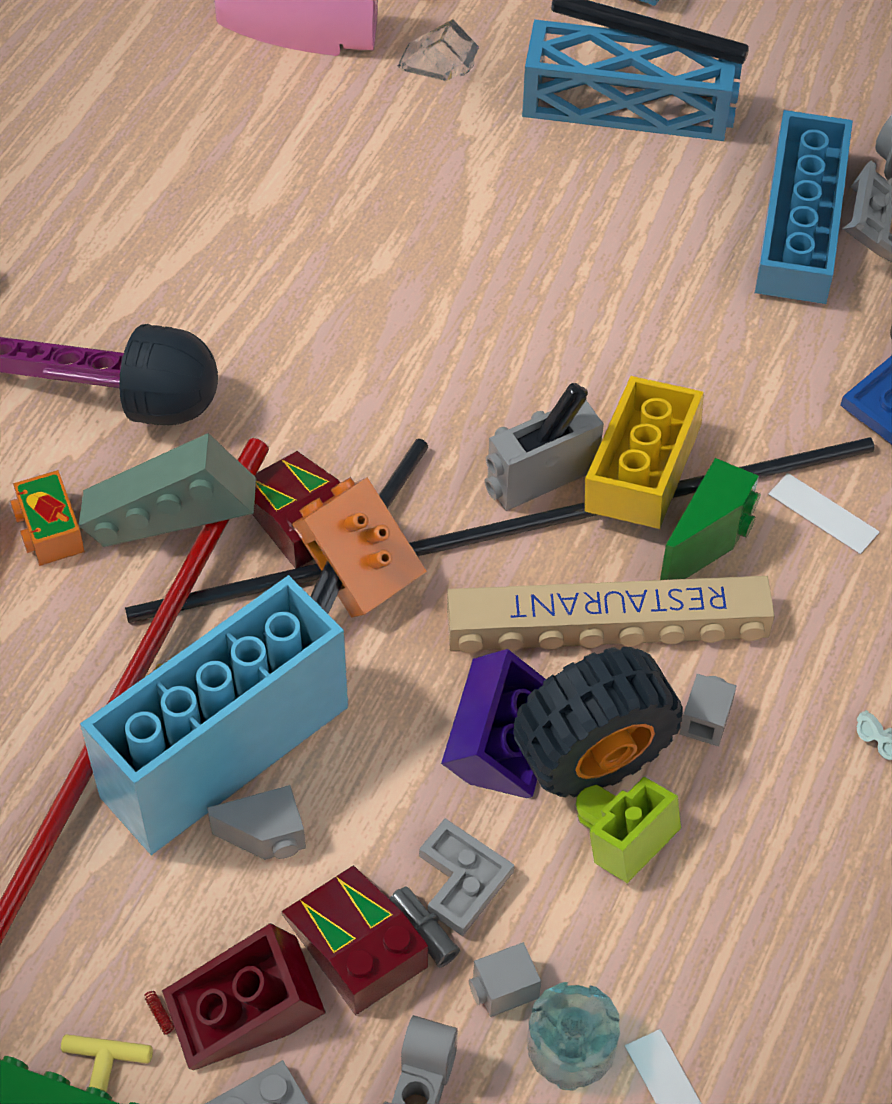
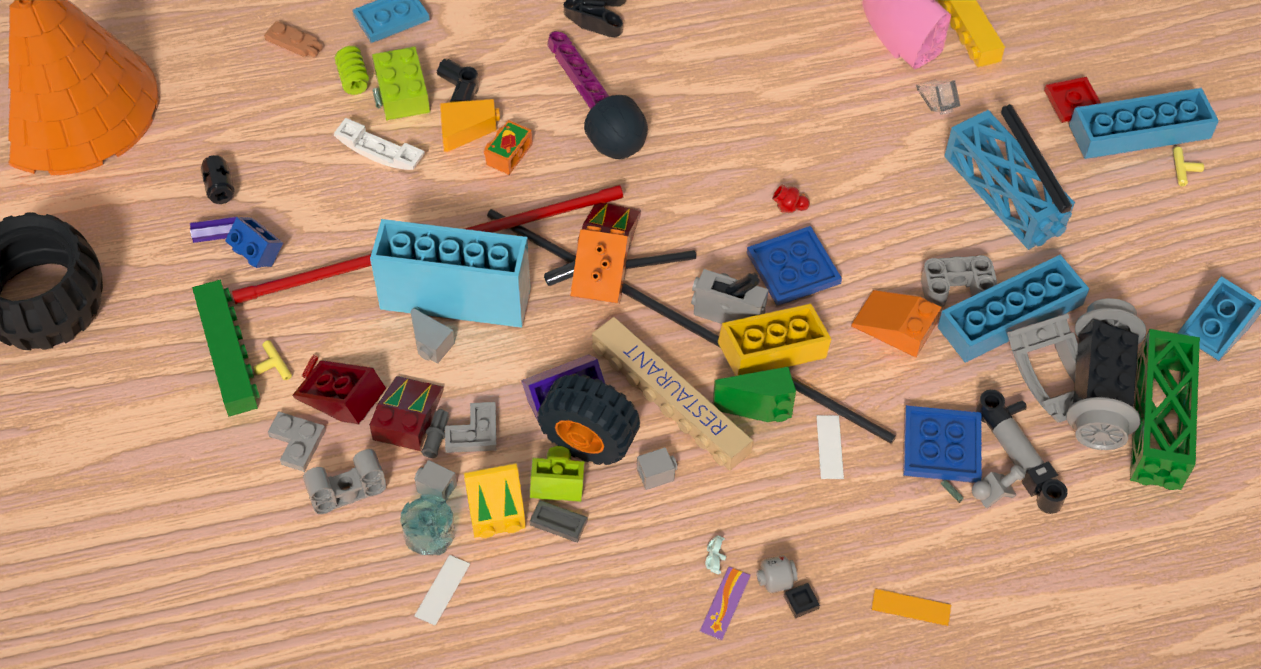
camera: 50 degrees right, 0 degrees up
(169, 494) = (555, 176): sand green wedge -> none
(441, 293) = (789, 199): none -> red animal
(537, 356) = (794, 265): none -> blue plate
(620, 926) = (495, 501): none -> yellow slope
(685, 876) = (558, 521): none -> dark grey tile
(715, 318) = (898, 320): none -> orange slope
(719, 204) = (943, 273): none -> light grey beam

